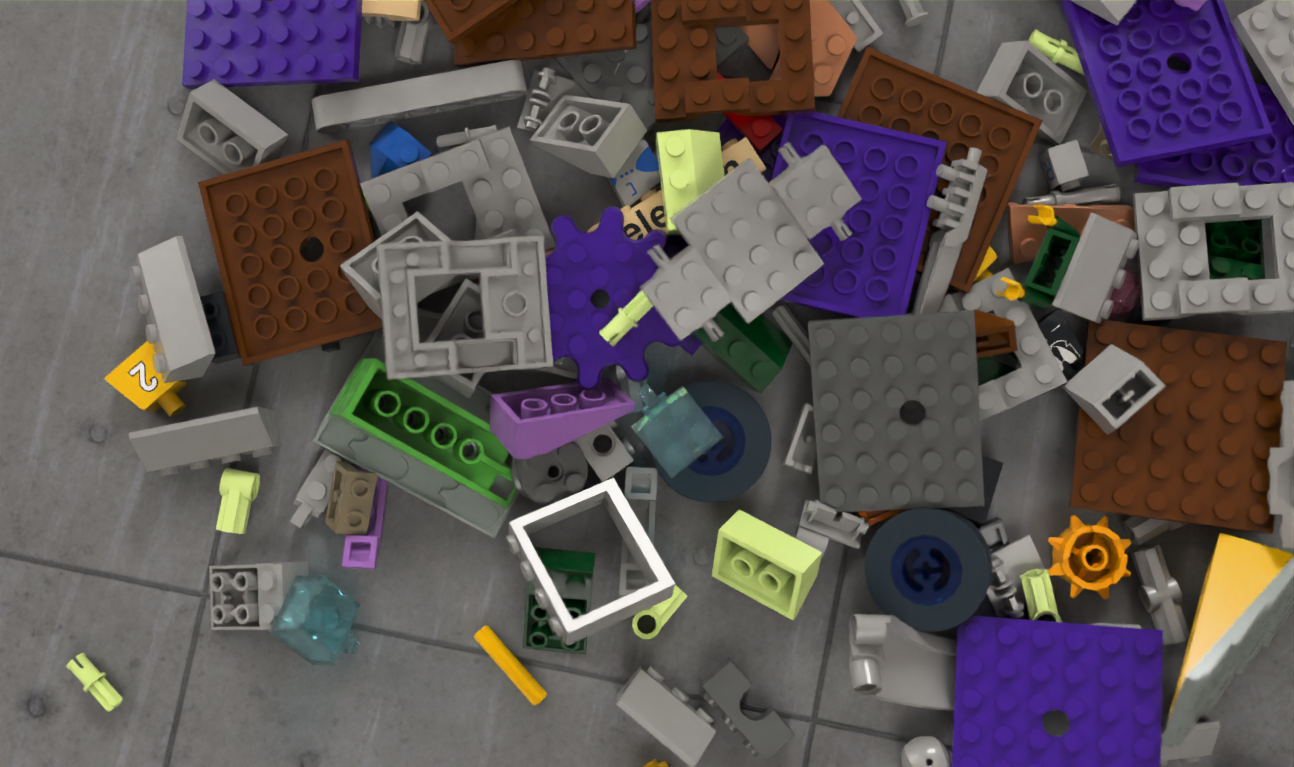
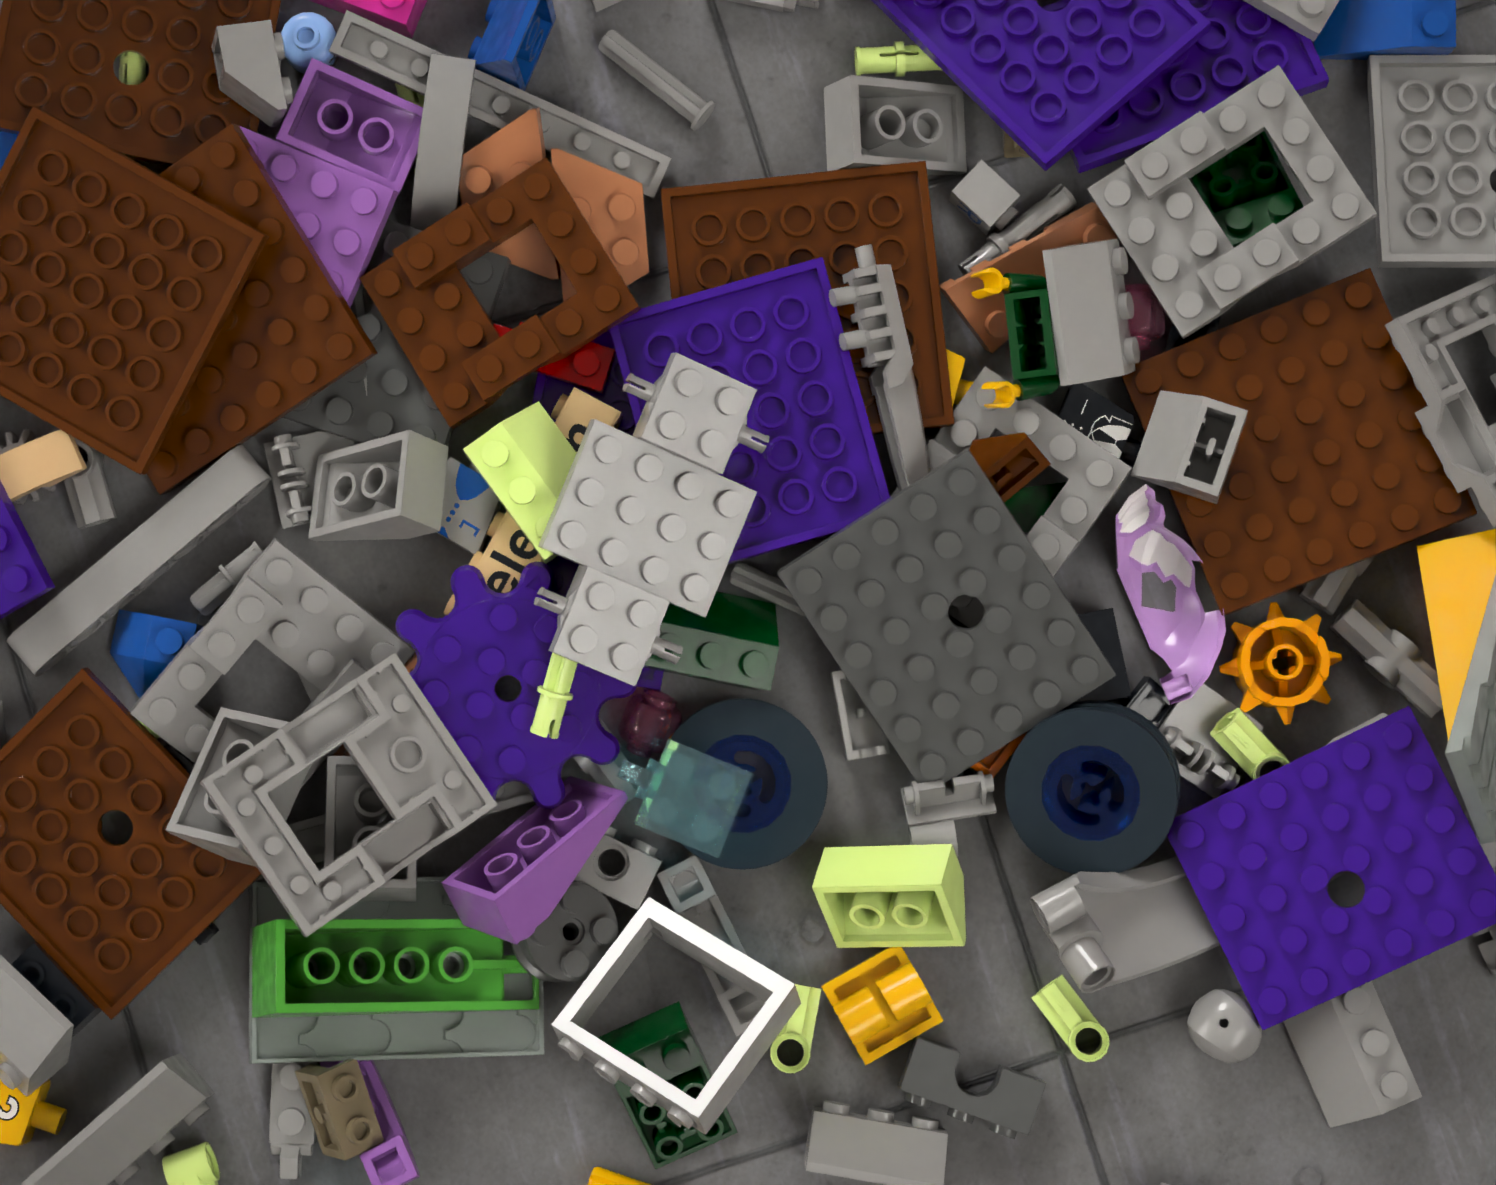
camera: 30 degrees left, 0 degrees up
(674, 370) = (649, 722): none -> clear pink head
(720, 626) = (882, 1003): none -> yellow plate
(832, 701) = (1069, 1015): none -> yellowish green piece
(1039, 508) = (1183, 638): none -> lavender animal

